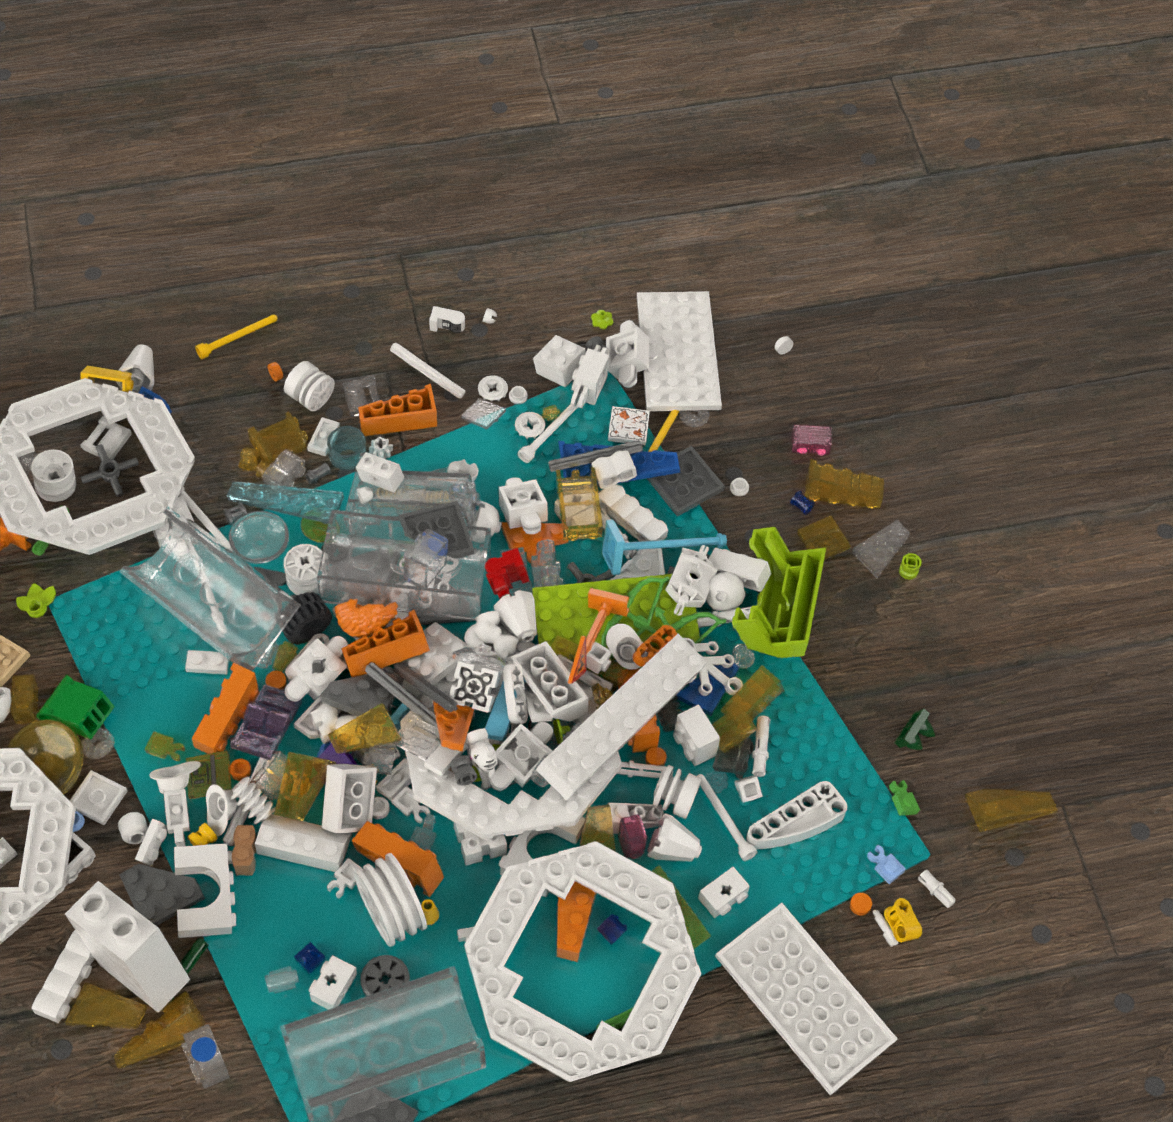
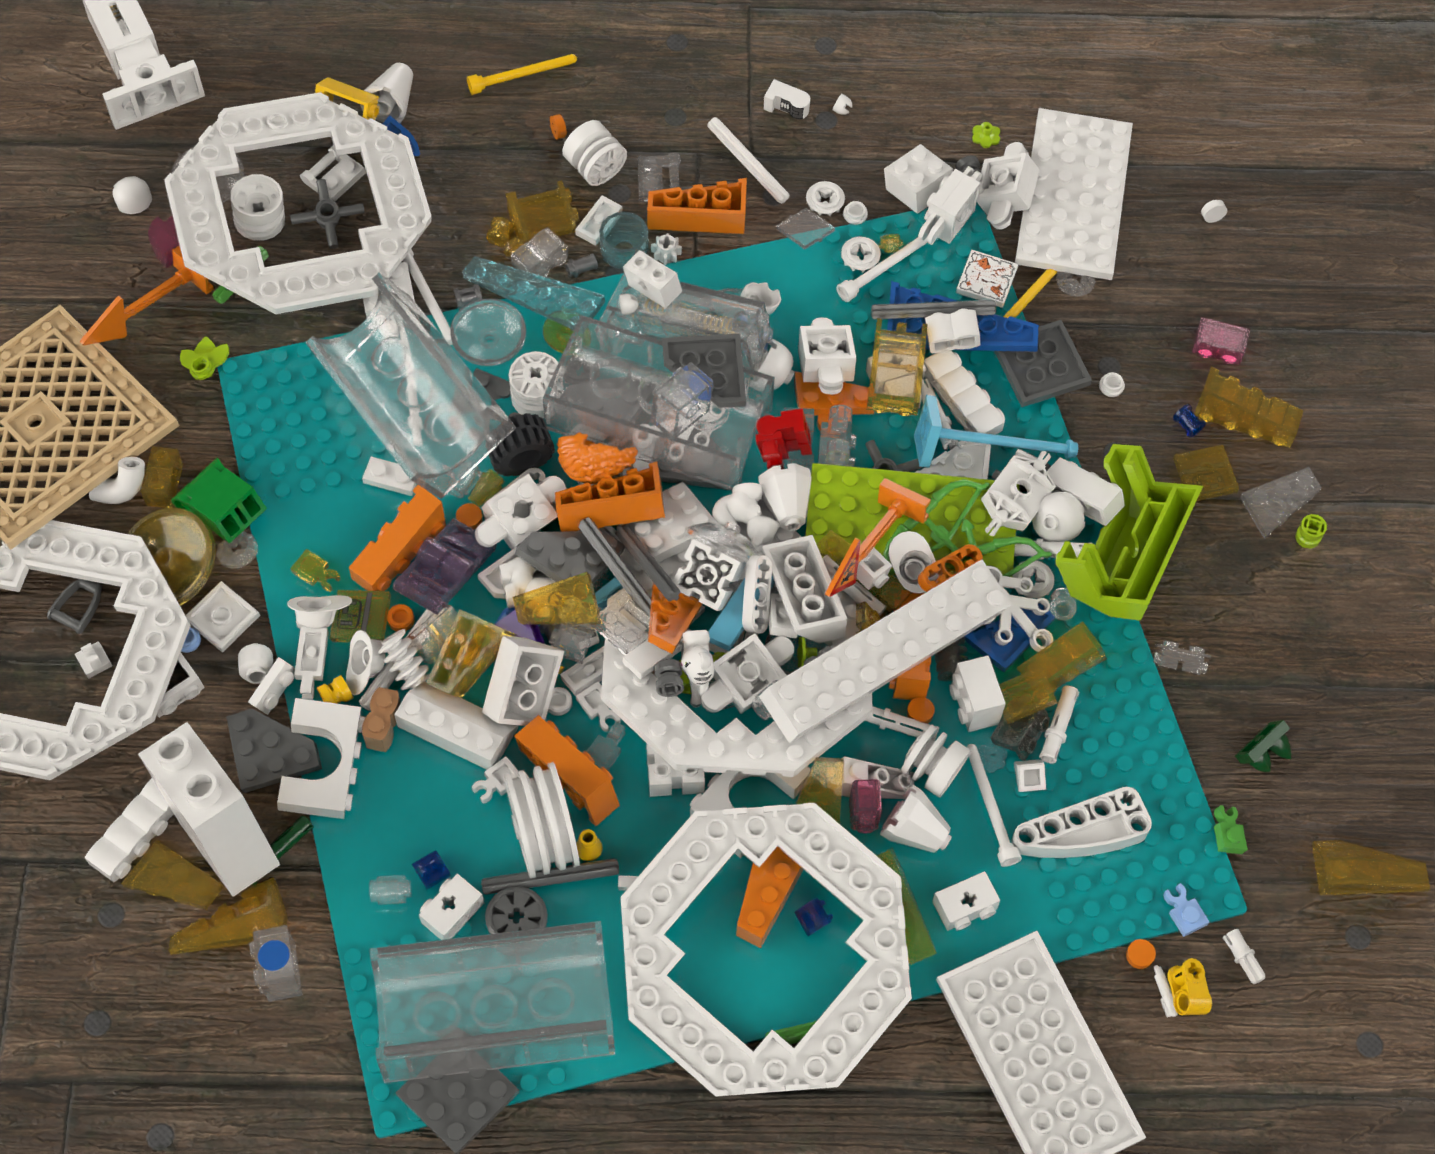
camera: 15 degrees right, 5 degrees up
(429, 933) = (584, 871): none -> dark grey axle
(724, 641) = (1043, 575): none -> white gear
(830, 677) = (1192, 659): none -> clear hinge

